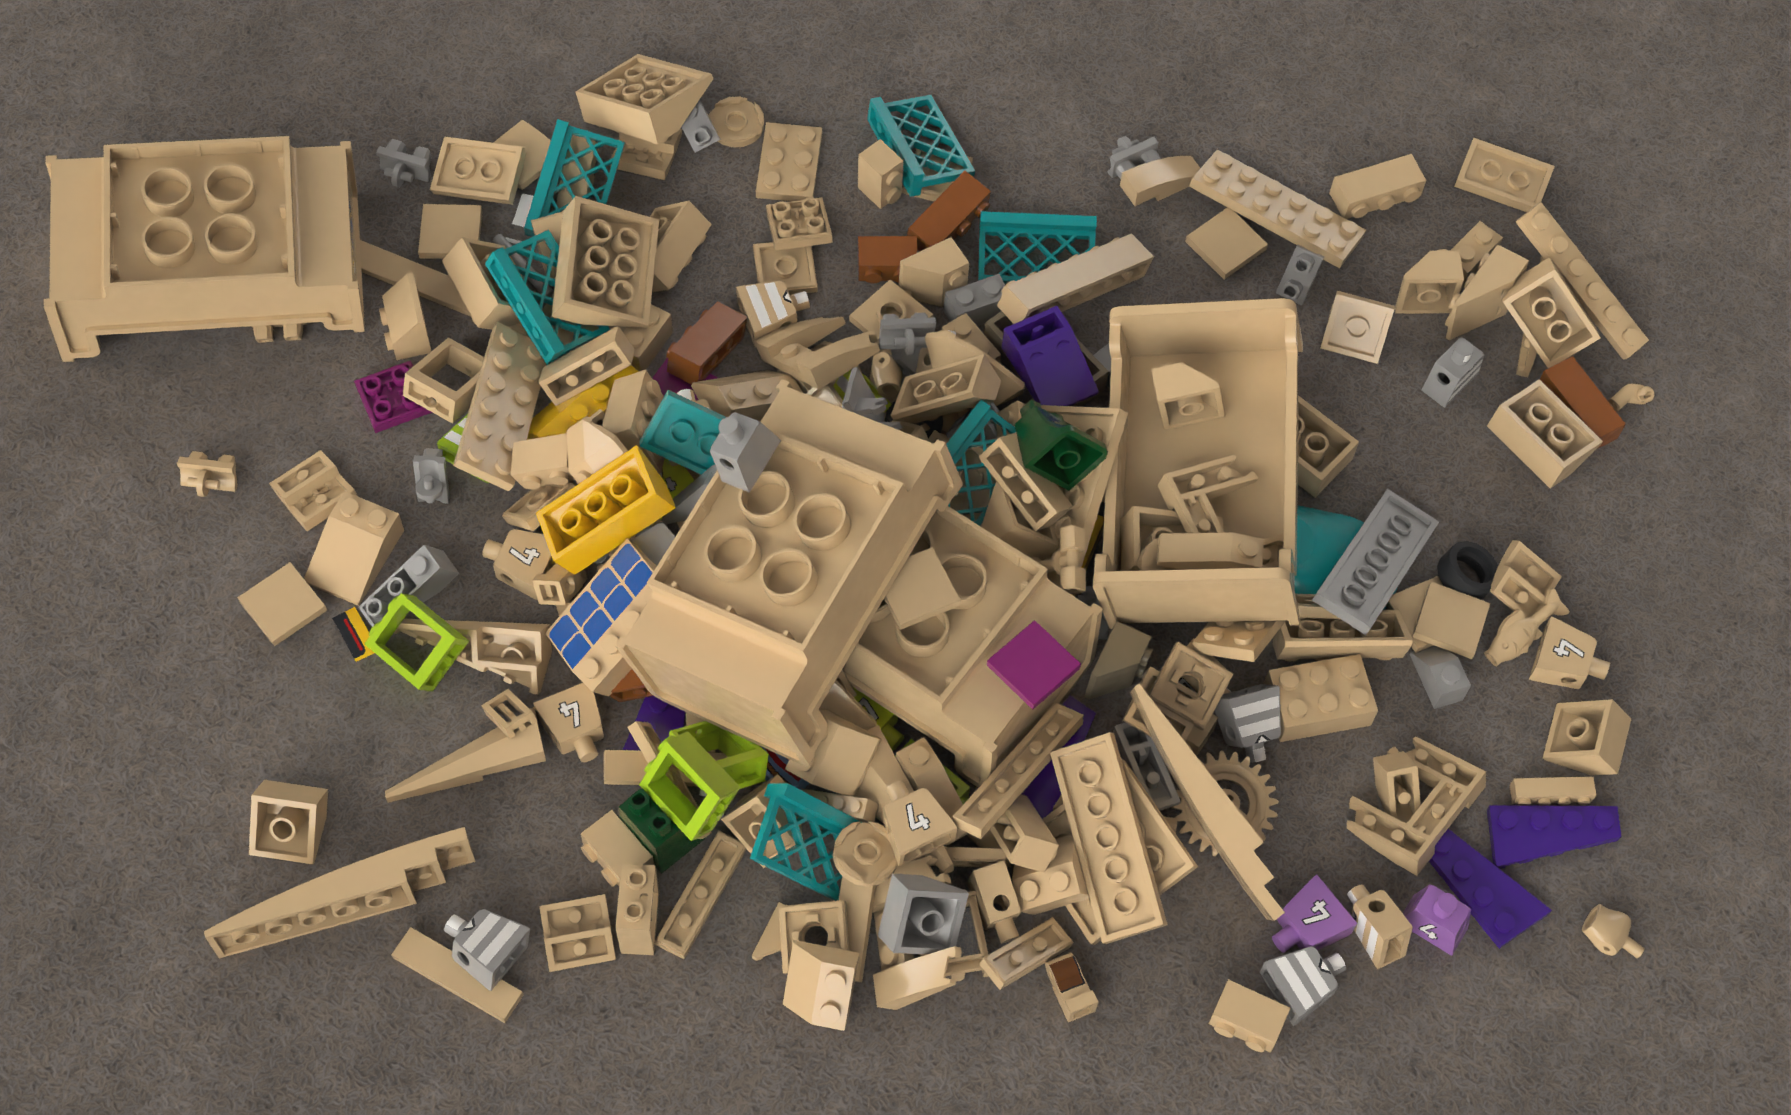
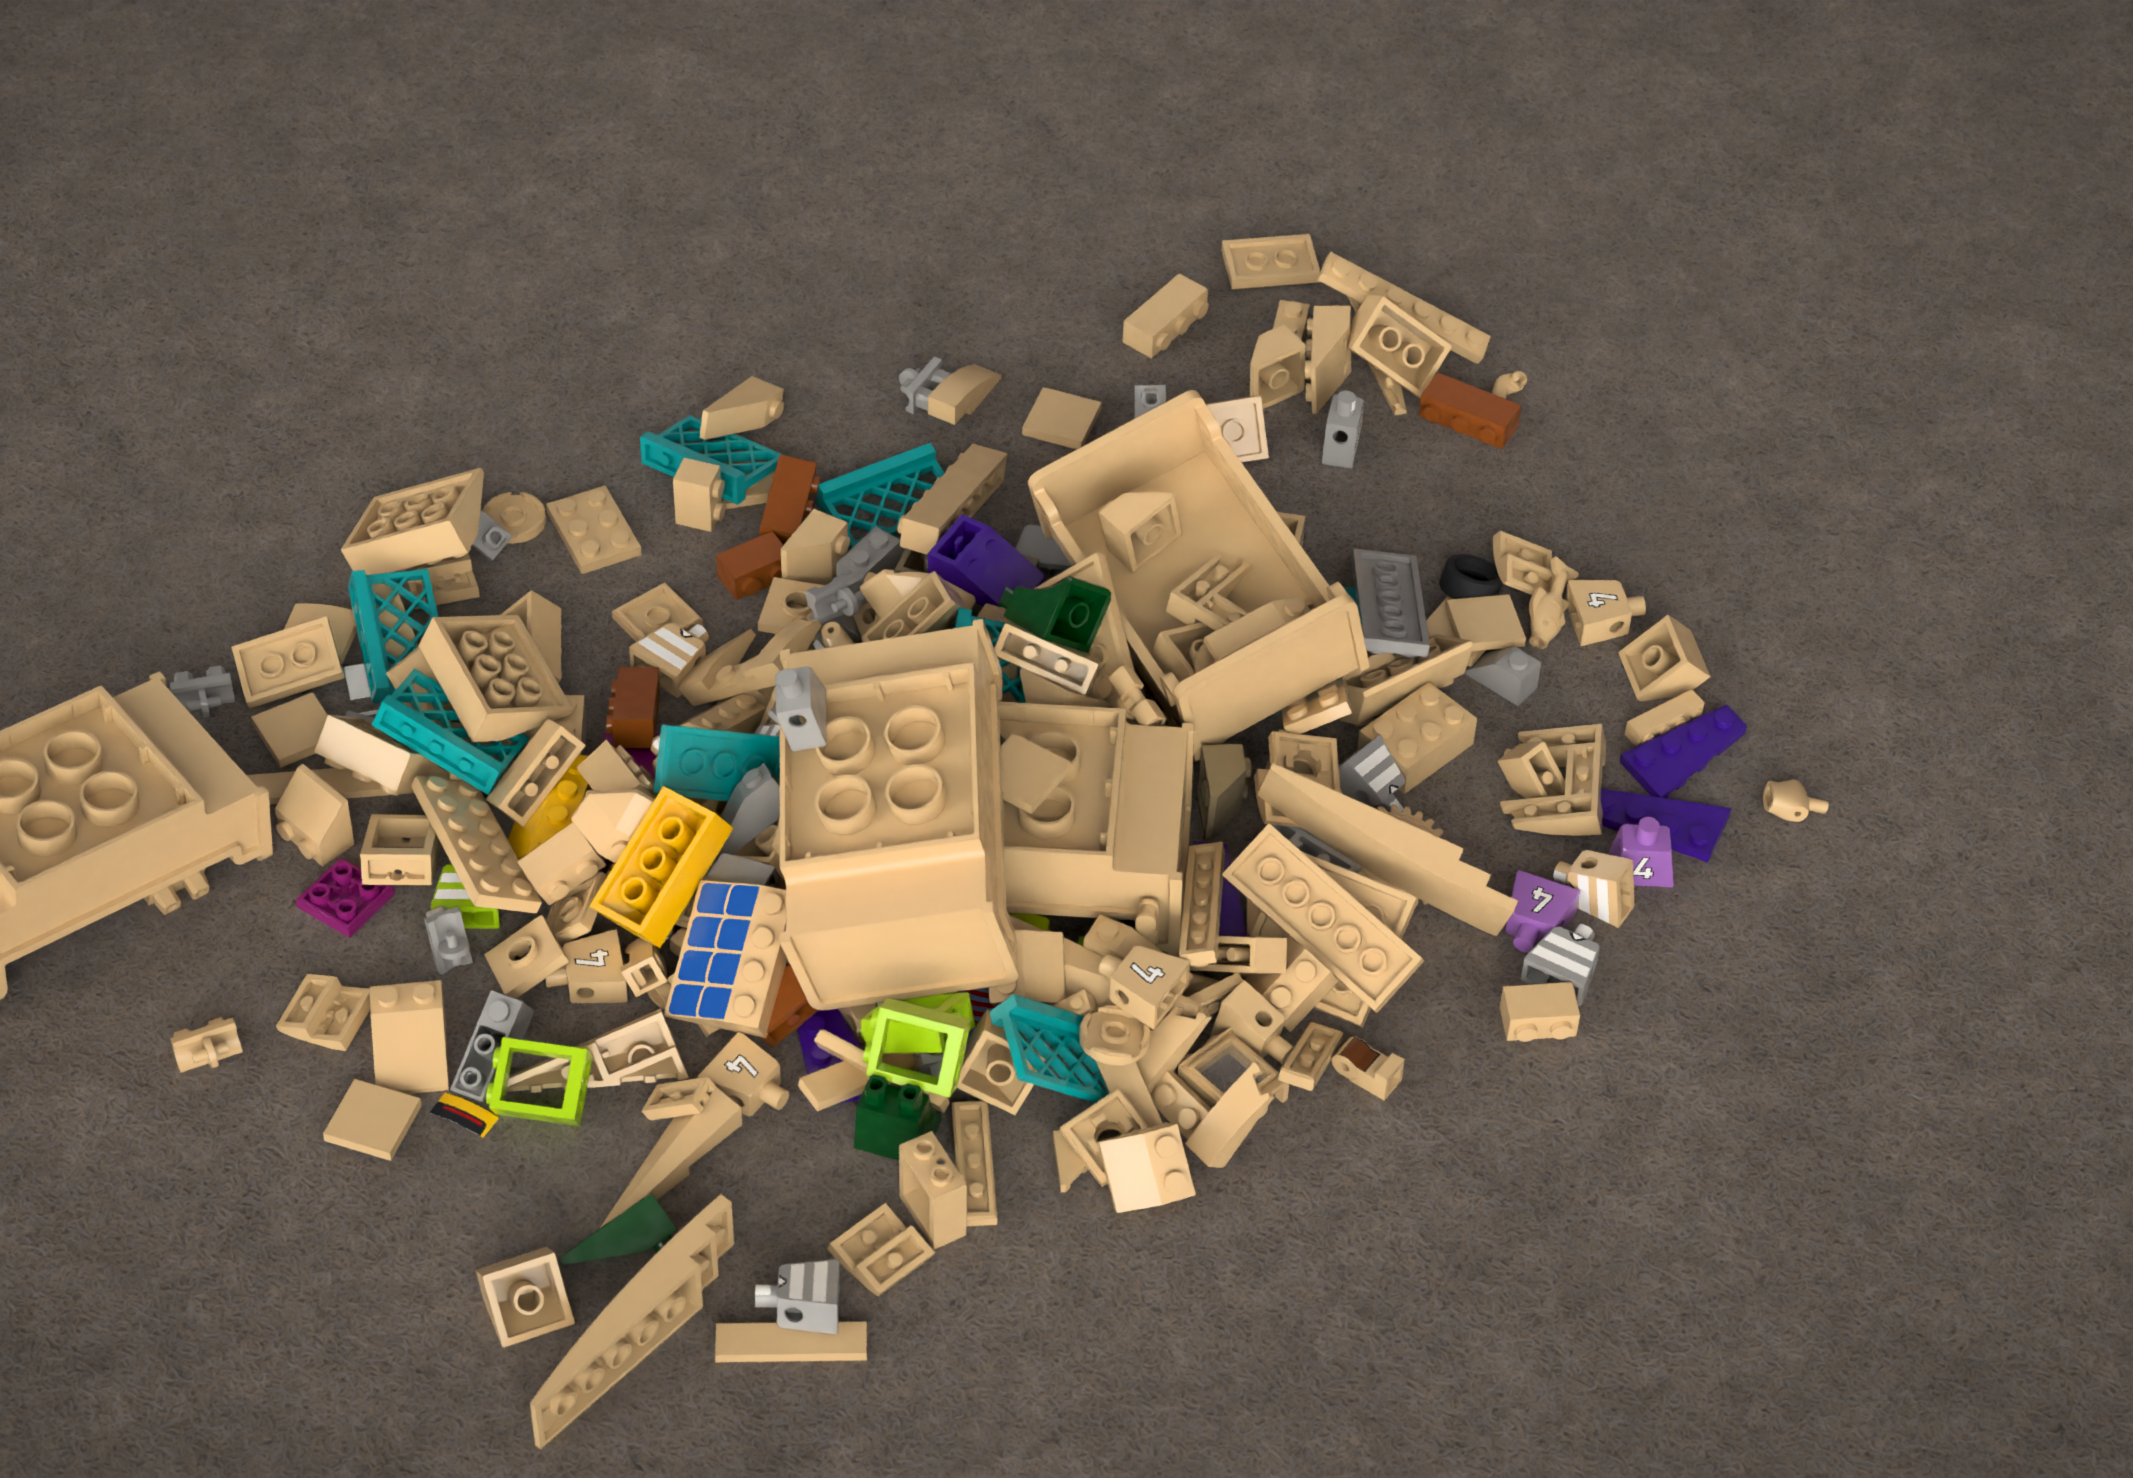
camera: 30 degrees left, 15 degrees down
(394, 813) = (631, 1232): none -> dark green slope
(485, 536) = (541, 961): none -> tan piece
(612, 845) = (865, 1162): tan brick -> none
(798, 223) = (644, 574): tan tile -> none
(921, 915) = (1202, 1055): light grey slope -> none
(959, 767) = (1147, 920): none -> tan bar
(969, 111) = (743, 409): none -> tan slope
(1033, 664) = (1169, 790): magenta tile -> none
(1277, 208) = (1086, 369): tan plate -> none
(1544, 433) = (1456, 445): tan slope -> none

